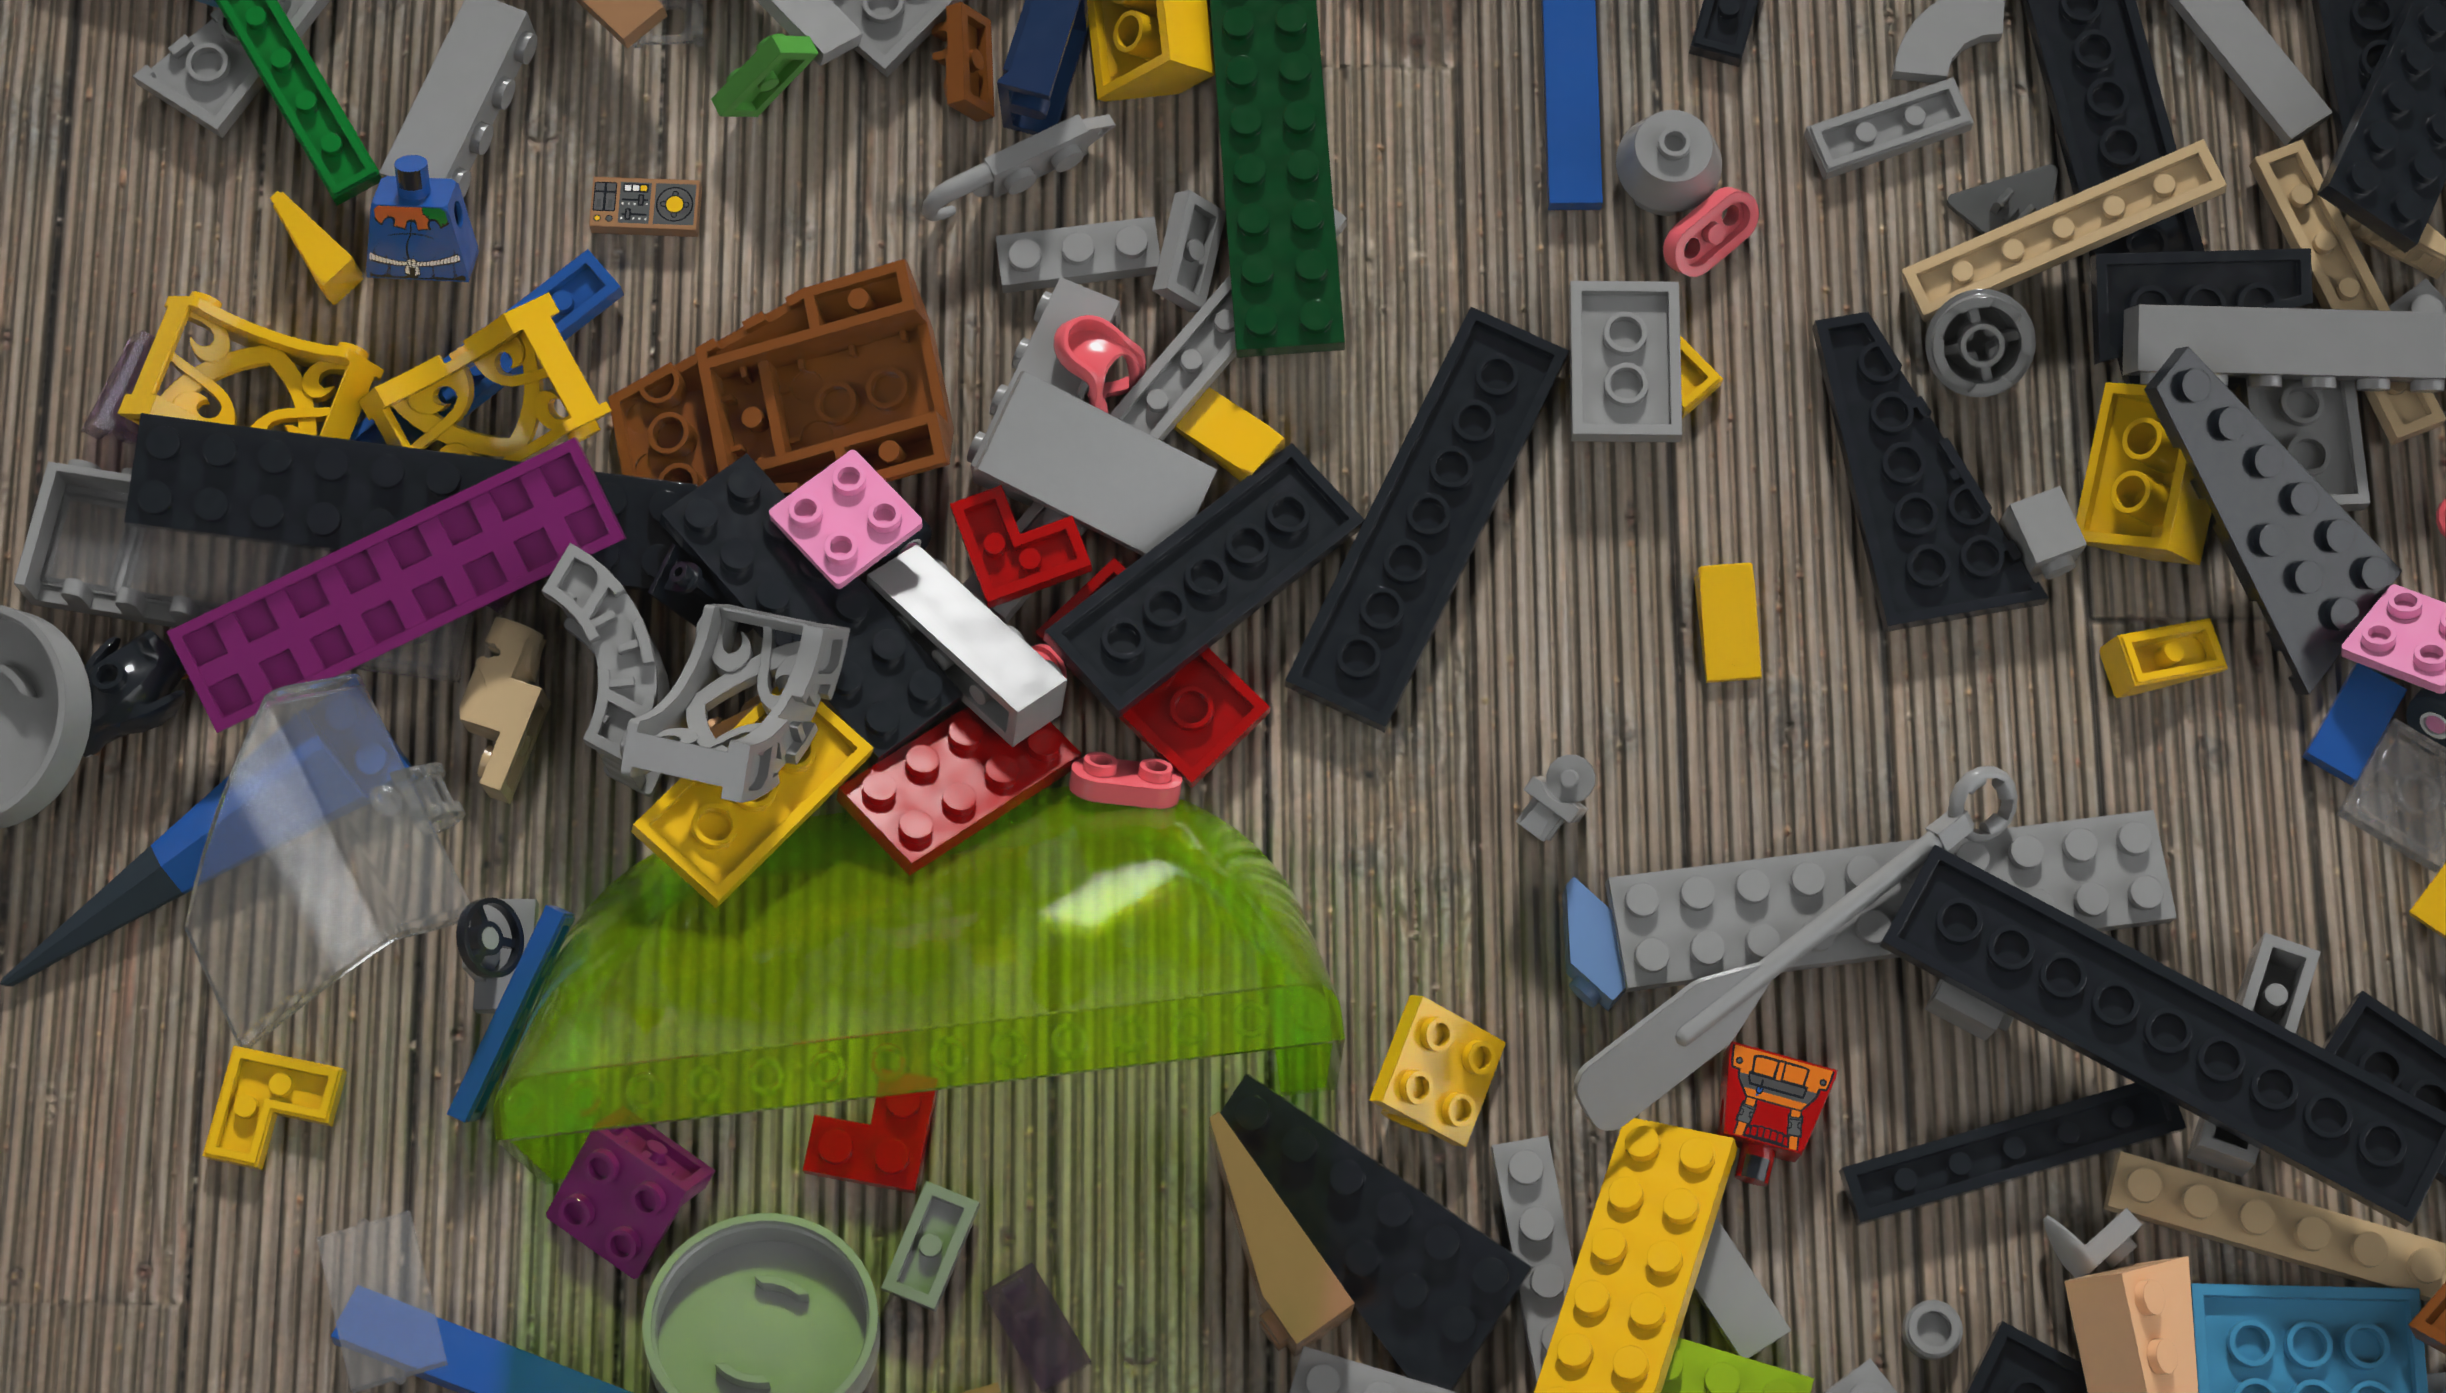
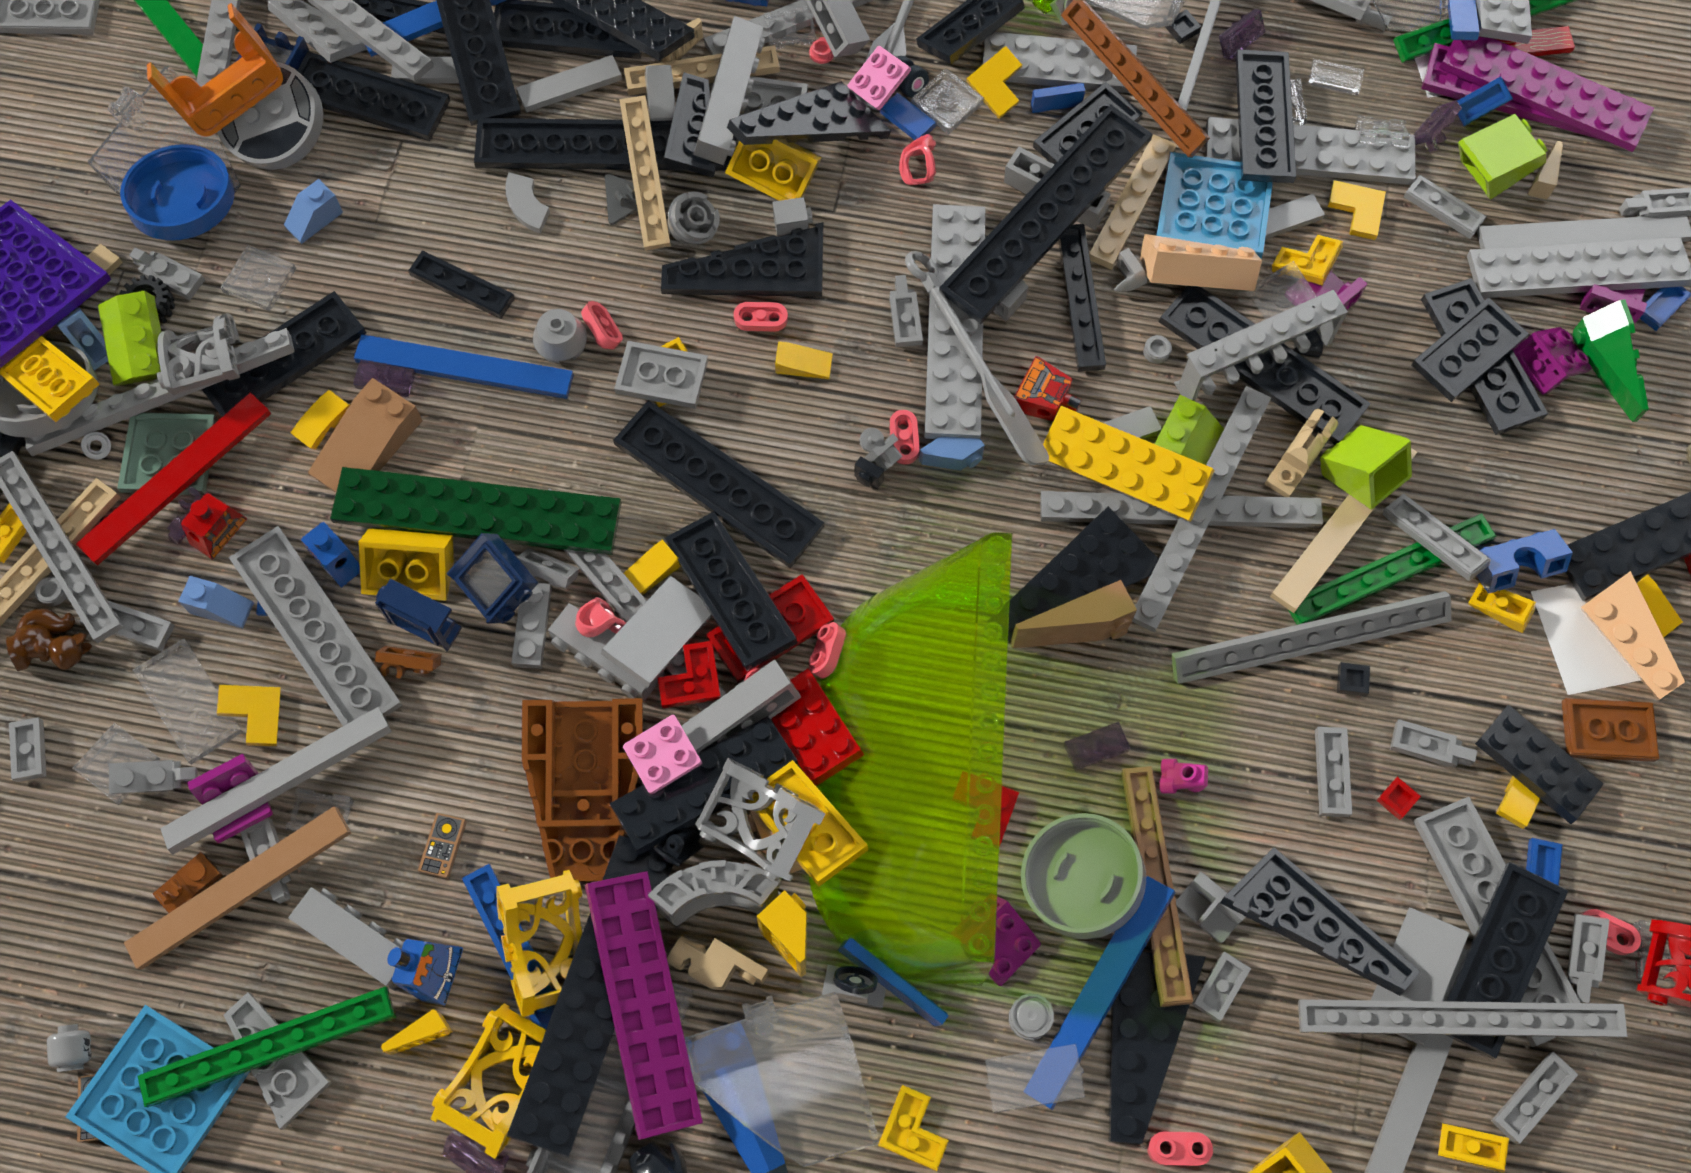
camera: 80 degrees left, 5 degrees down
(493, 1278) = (1031, 1016): none -> light grey wheel
(559, 808) = (785, 928): none -> yellow slope
(764, 75) = (391, 772): bright green plate -> none
(930, 1246) = (1049, 789): light grey plate -> none
(1020, 164) = (477, 644): light grey plate -> none
(1142, 162) = (493, 578): none -> dark blue window
(1436, 1072) = (999, 519): yellow plate -> none
(1506, 791) = (868, 473): none -> black plate
(1604, 847) = (908, 437): none -> coral plate
(1805, 524) = (761, 314): none -> coral plate
(1879, 799) = (905, 314): none -> light grey hinge
(1888, 128) = (567, 239): light grey tile -> none
(2162, 657) = (860, 186): yellow slope -> none
(2257, 216) = (660, 92): none -> light grey slope
(2280, 752) = (918, 147): none -> coral piece

